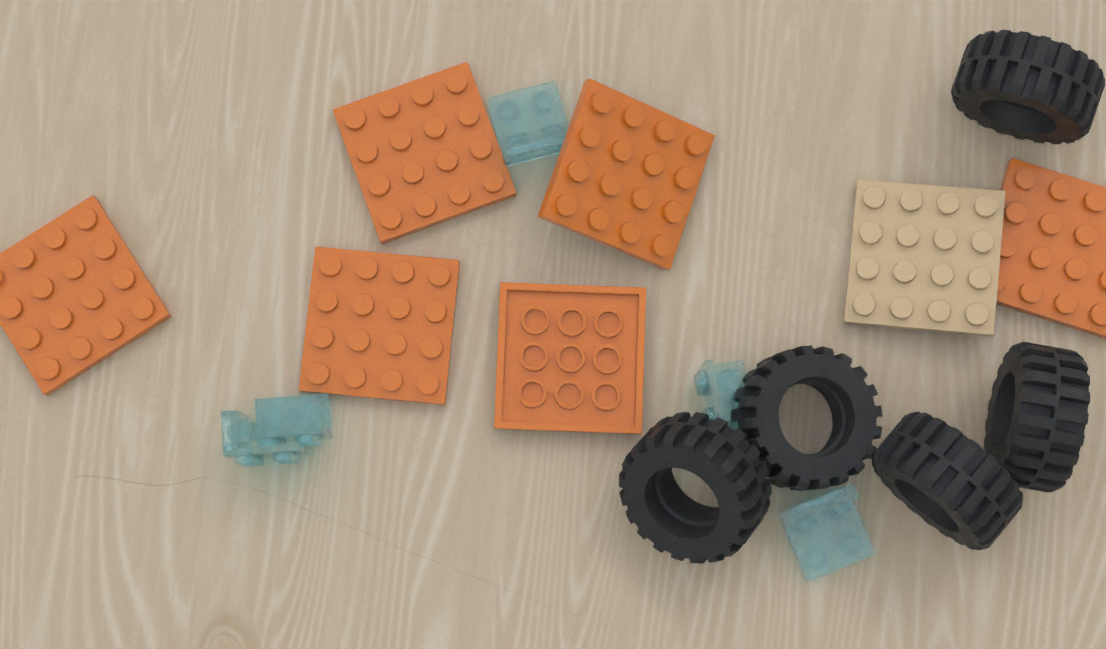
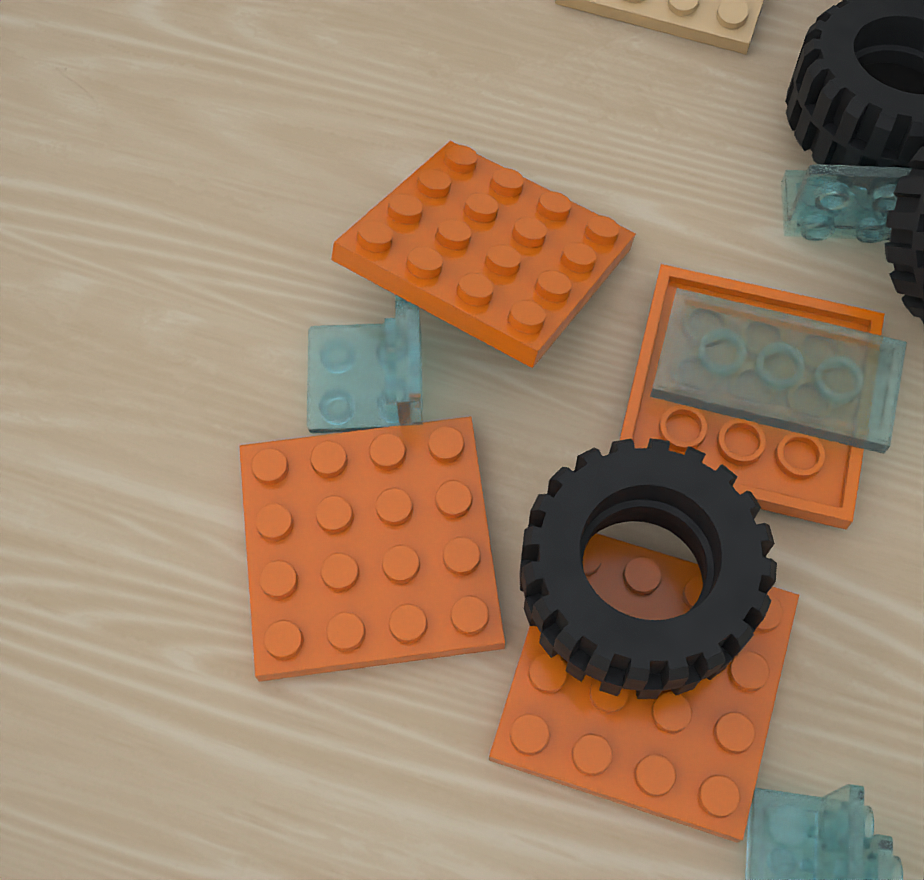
camera: 75 degrees left, 15 degrees down
(402, 259) = (694, 506): none -> black tyre
(583, 370) = (780, 370): none -> clear light blue tile

